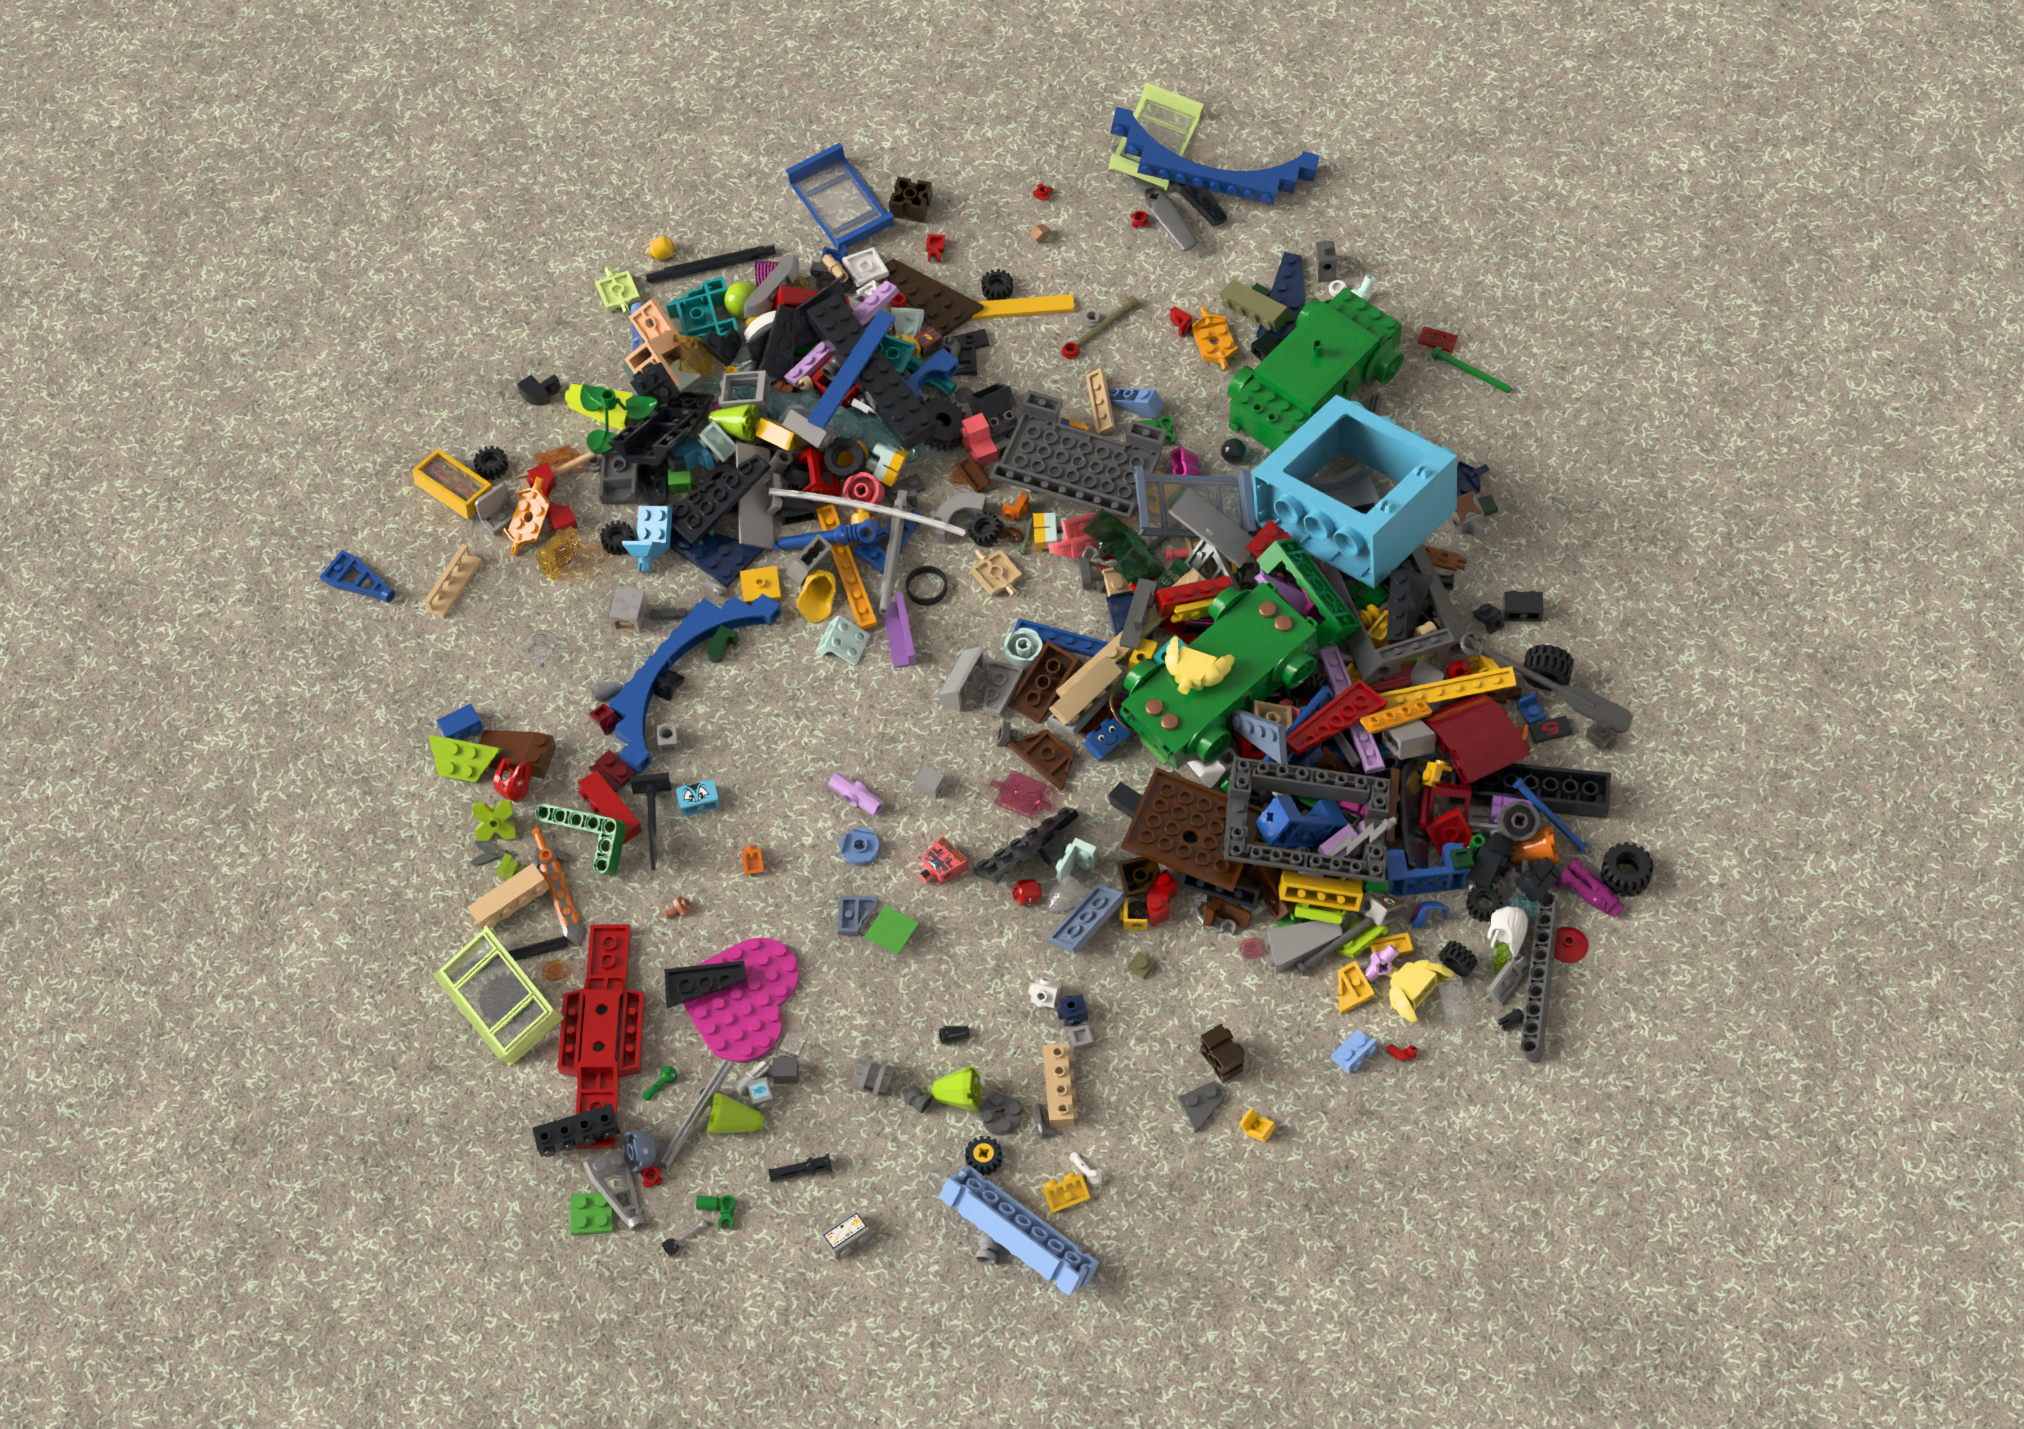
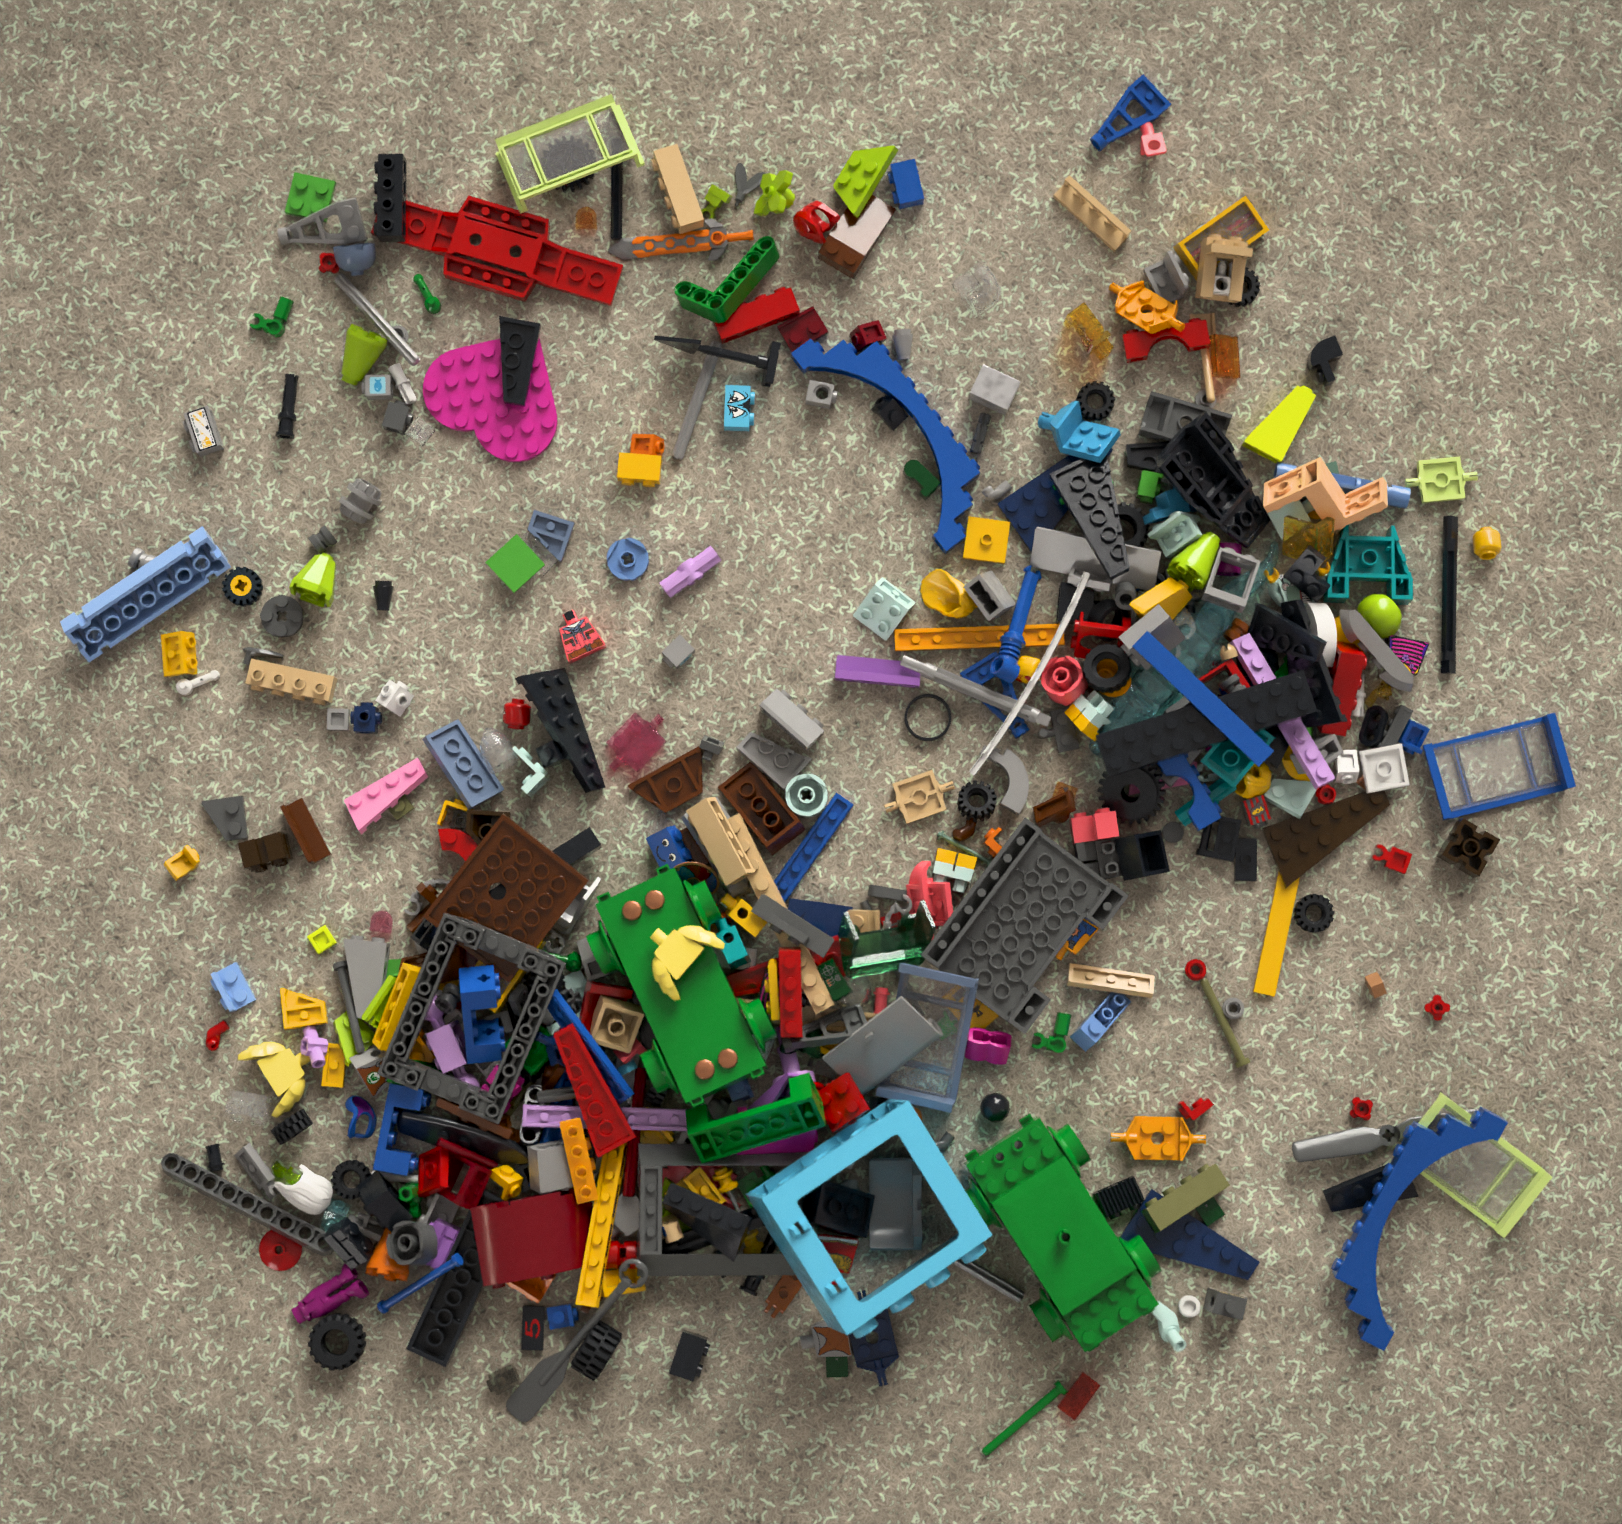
camera: 100 degrees right, 25 degrees up
(379, 554) = (1151, 142): none -> coral bracket
(479, 466) = (1230, 250): none -> tan brick
(595, 397) = (1249, 459): green plant -> none
(655, 384) = (1275, 484): black plate -> none
(671, 1245) = (250, 264): hinge -> none
(682, 906) = (618, 360): nougat plate -> none
(702, 834) = (695, 404): none -> light grey axle
(775, 859) = (639, 469): none -> yellow brick
(835, 267) = (1387, 731): tan pin -> none
(954, 346) = (1233, 836): dark grey arm -> none
(1139, 979) = (376, 798): none -> bright pink wing
(1191, 1033) = (306, 831): none -> reddish brown panel
(1263, 733) = (583, 1005): sand blue wing -> none
(1284, 992) = (322, 939): none -> neon yellow tile
(1369, 833) = (446, 1080): light grey piece -> none
(1462, 859) = (386, 1167): dark green tile -> none
(1490, 617) = (690, 1314): black bracket -> none

